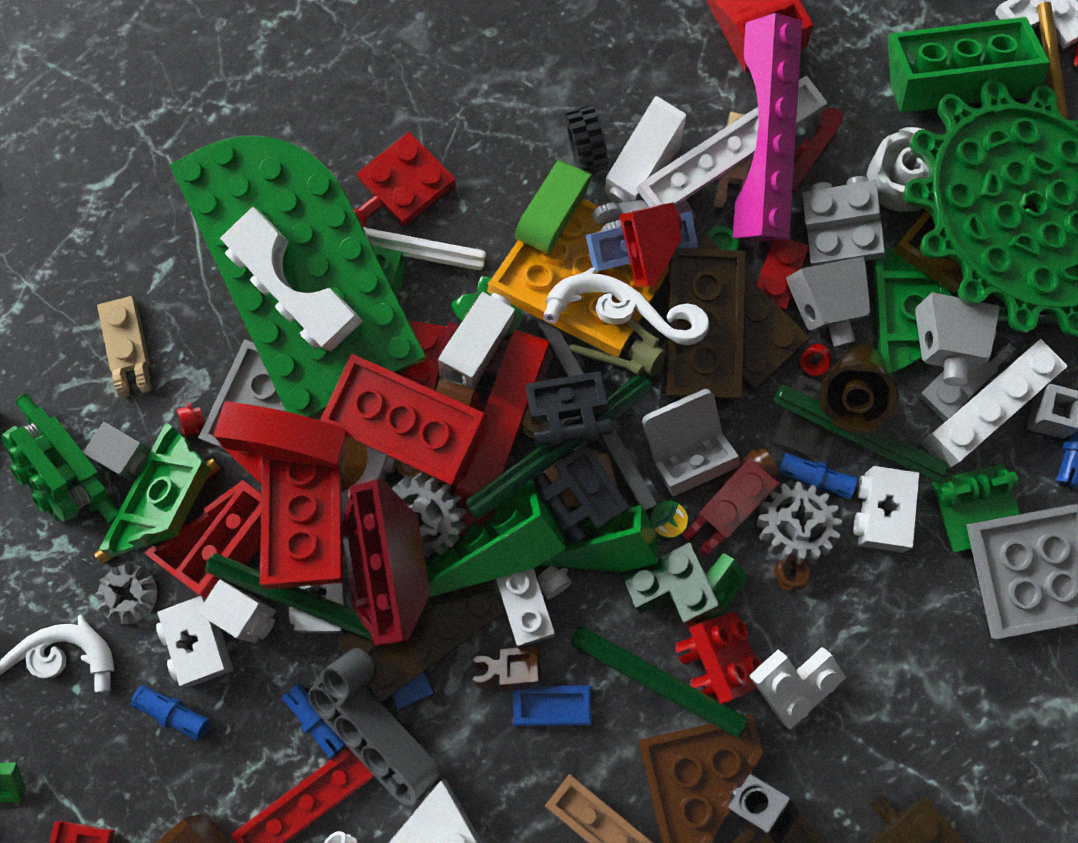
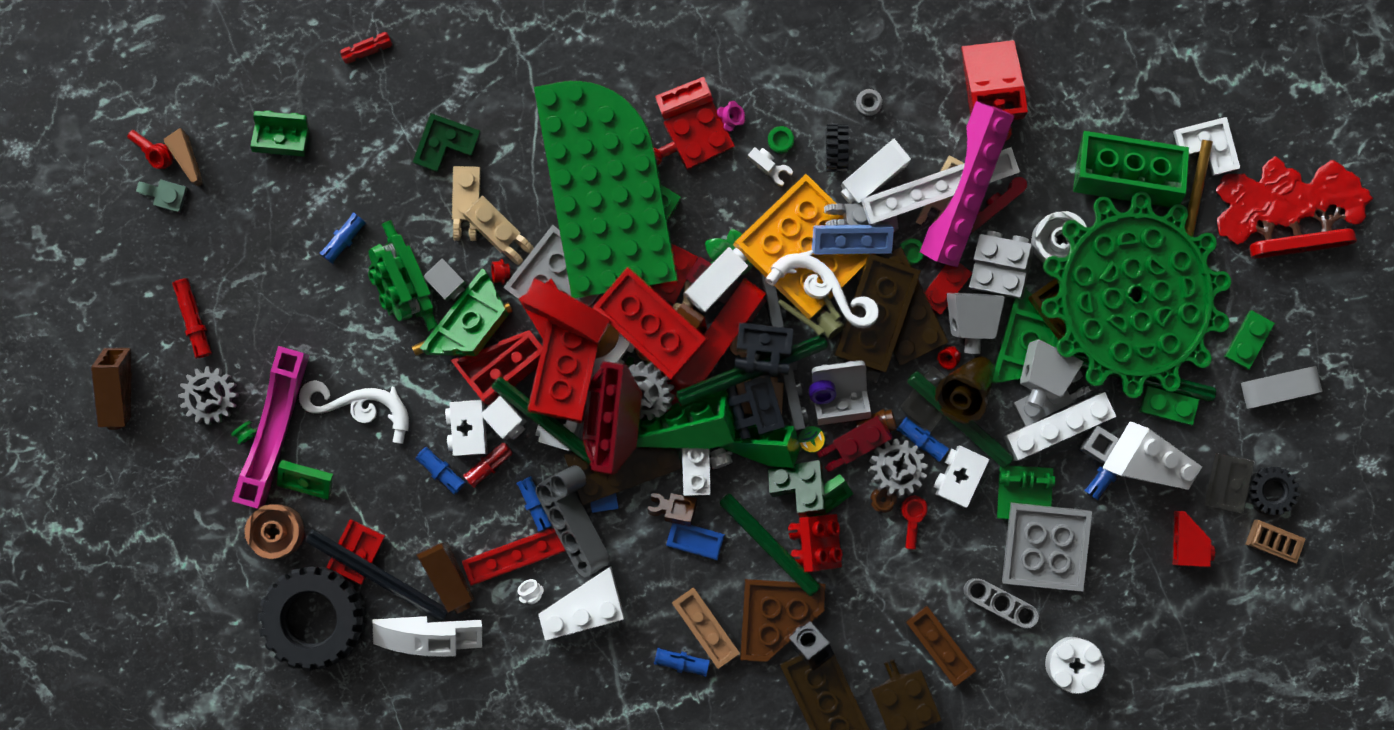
camera: 15 degrees right, 10 degrees up
(74, 269) = (444, 134): none -> dark green plate
(142, 587) = (440, 381): light grey gear -> none
(171, 366) = (497, 229): none -> tan hinge
(235, 685) = (488, 464): none -> red axle
(261, 248) = (583, 172): white arch -> none
(374, 139) = (684, 98): none -> red plate
(428, 249) = (698, 194): white axle -> none
(441, 144) = (736, 112): none -> dark pink plate
(500, 187) = (763, 160): none -> white plate
(511, 157) = (780, 139): none -> green tile
(553, 206) = (798, 195): bright green beam -> none
(611, 73) = (871, 94): none -> light grey plate
(651, 240) = (857, 244): red slope -> none
(665, 449) = (822, 392): none -> dark purple tile
(793, 691) = (858, 578): white plate -> none
(840, 574) = (914, 510): none -> red plate
(942, 755) = (940, 646): none -> reddish brown plate
(1021, 665) = (1013, 607): none -> light grey beam

